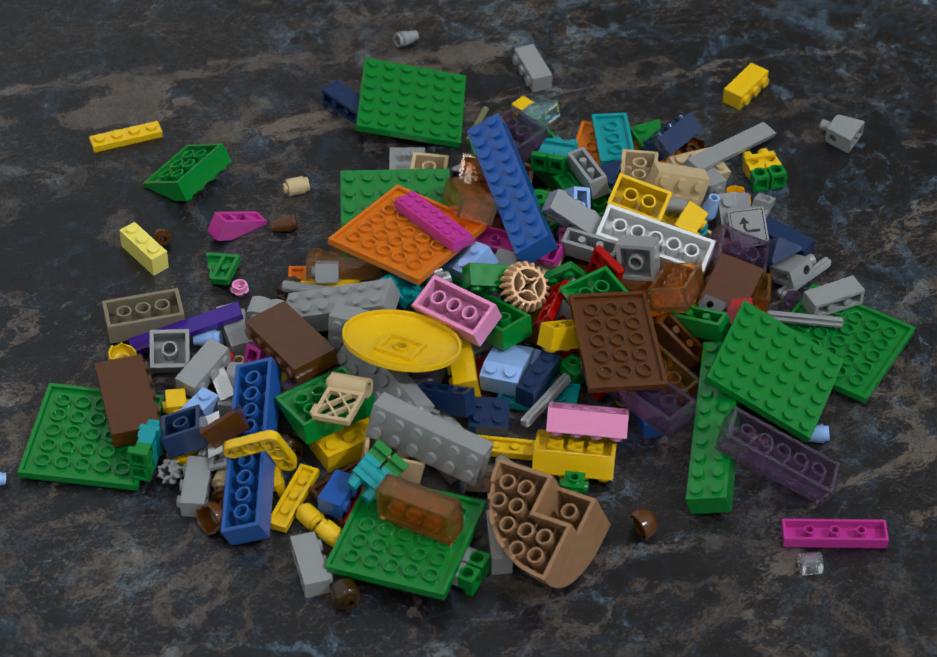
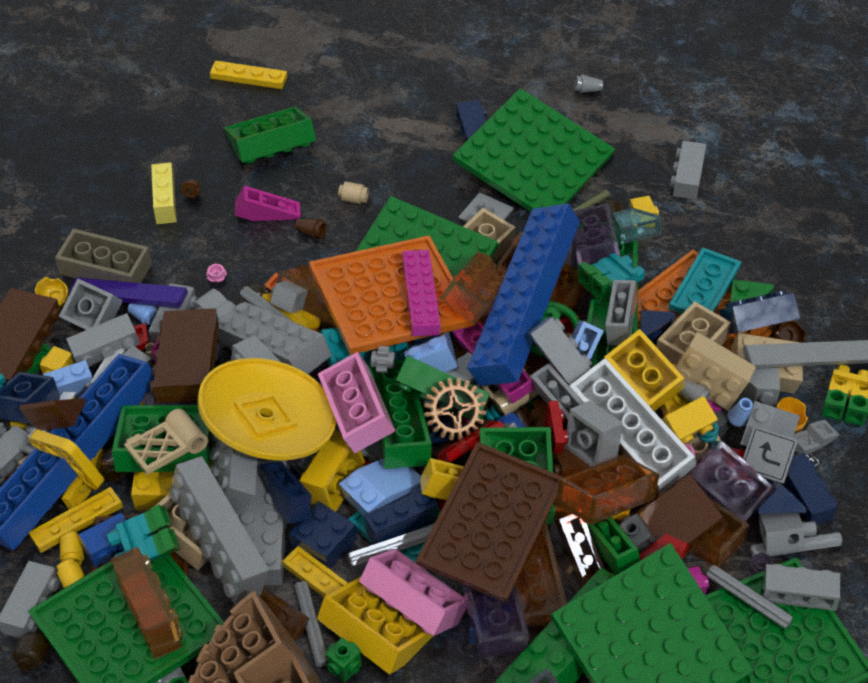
camera: 35 degrees right, 5 degrees up
(222, 267) = (217, 245): green wing -> none
(563, 272) = (510, 414): green wing -> none

